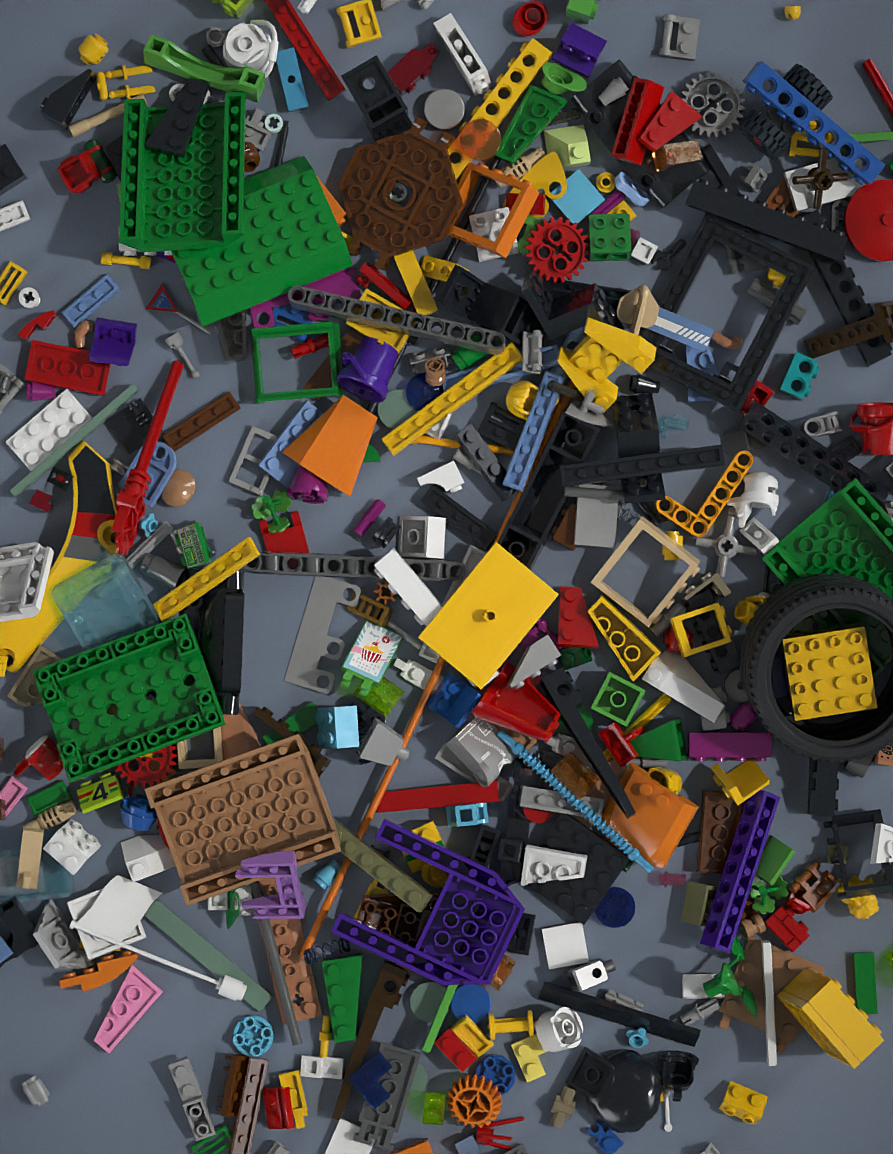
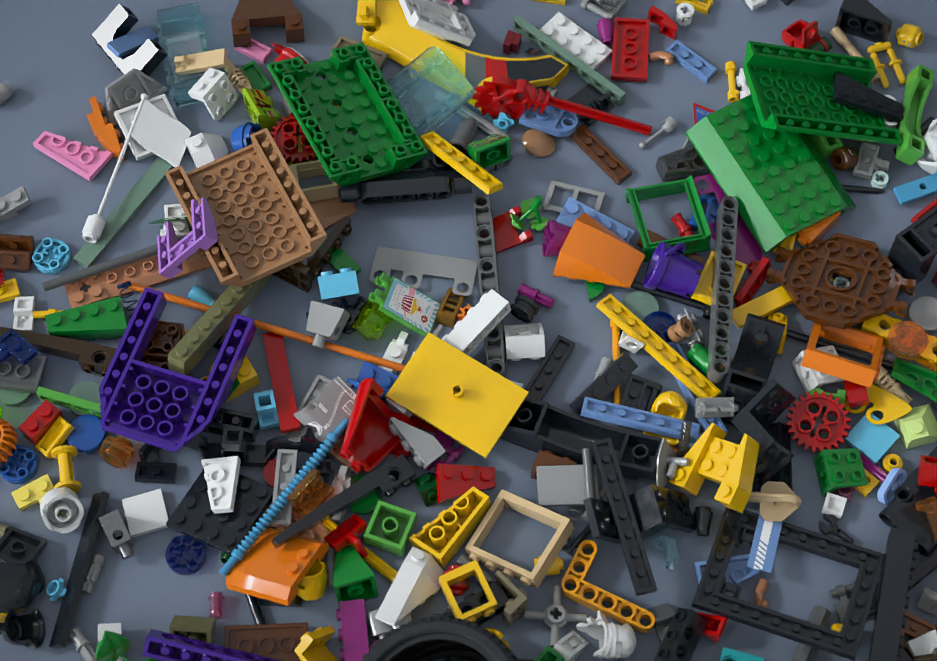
camera: 85 degrees right, 25 degrees down
(113, 342) = (659, 79): dark purple bracket -> none
(444, 476) = (584, 354): white arch -> none

